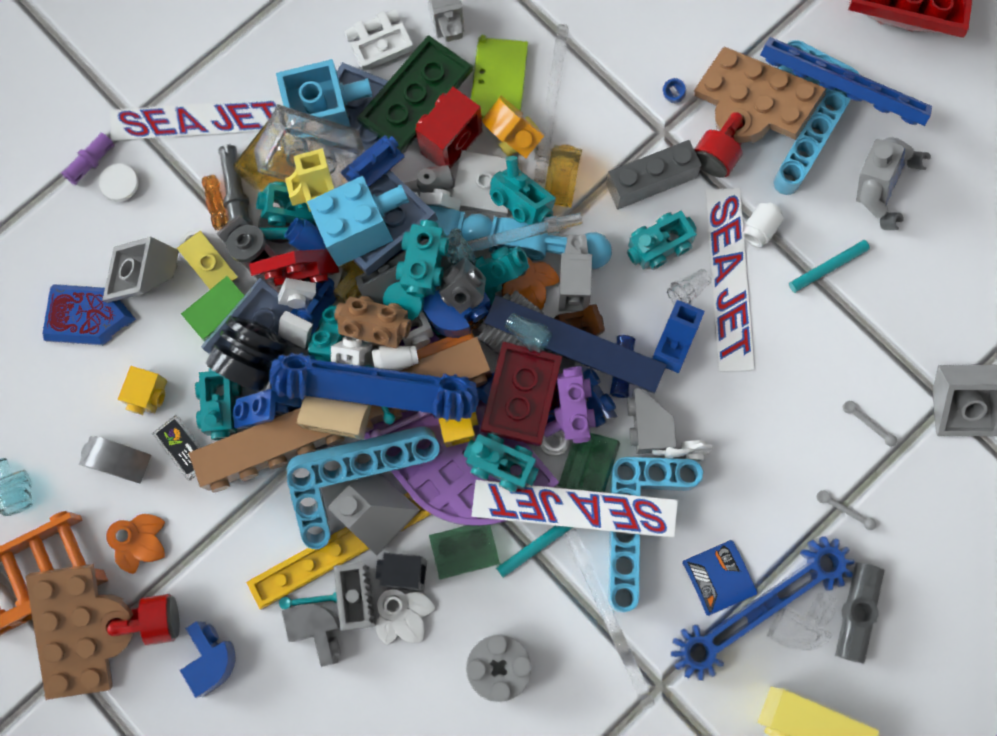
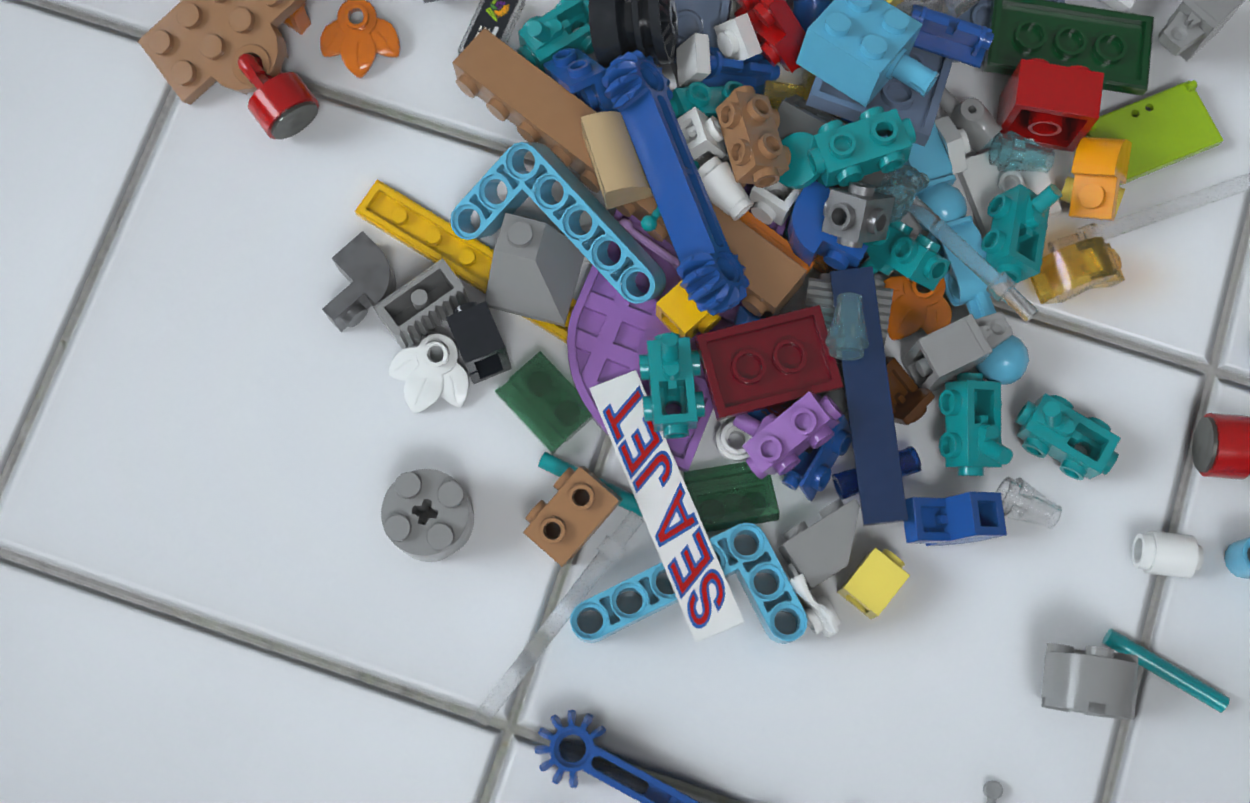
camera: 55 degrees right, 0 degrees up
(213, 665) = (267, 194): blue brick -> none
(286, 602) = (378, 237): teal hinge -> none
(468, 166) = (1018, 153): none -> clear light blue cone
(549, 572) = (571, 514): none -> medium nougat brick
(626, 292) = (972, 425): none -> teal brick
(653, 174) = (1147, 381): dark grey brick -> none
(690, 406) = (874, 582): none -> light yellow brick
(720, 577) = (681, 731): blue sticker -> none
(729, 280) = (1069, 551): sticker -> none
(817, 314) = (1090, 681): none -> light grey brick

